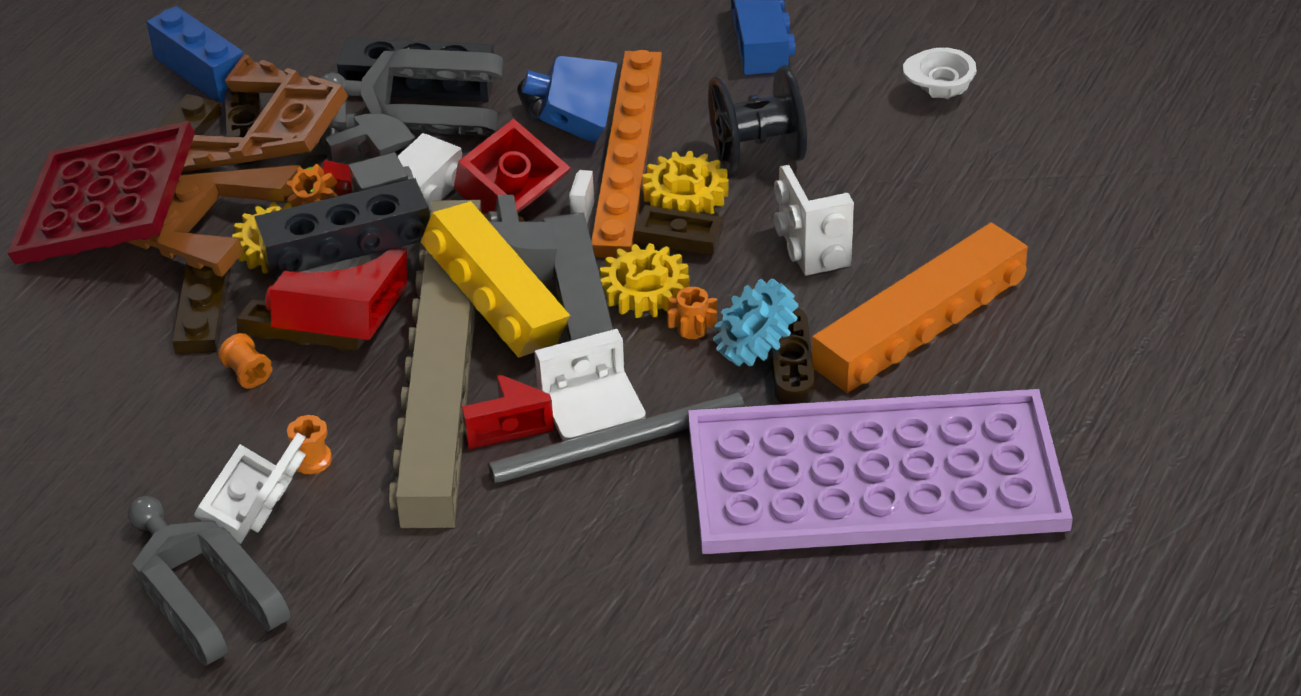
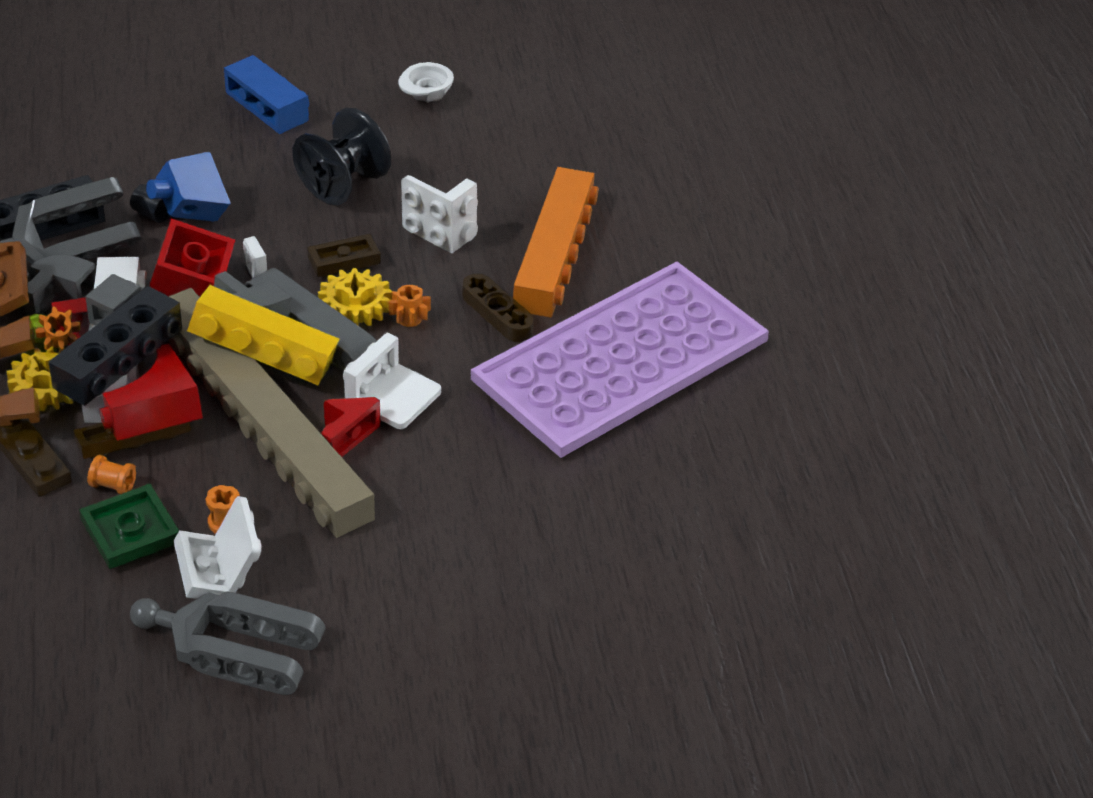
camera: 40 degrees left, 0 degrees up
(214, 418) = (129, 526): none -> dark green plate
(602, 441) = (426, 416): dark grey piece -> none
(627, 154) = (255, 220): orange plate -> none
(684, 183) = (320, 221): yellow gear -> none
(755, 322) = (465, 292): medium azure gear -> none

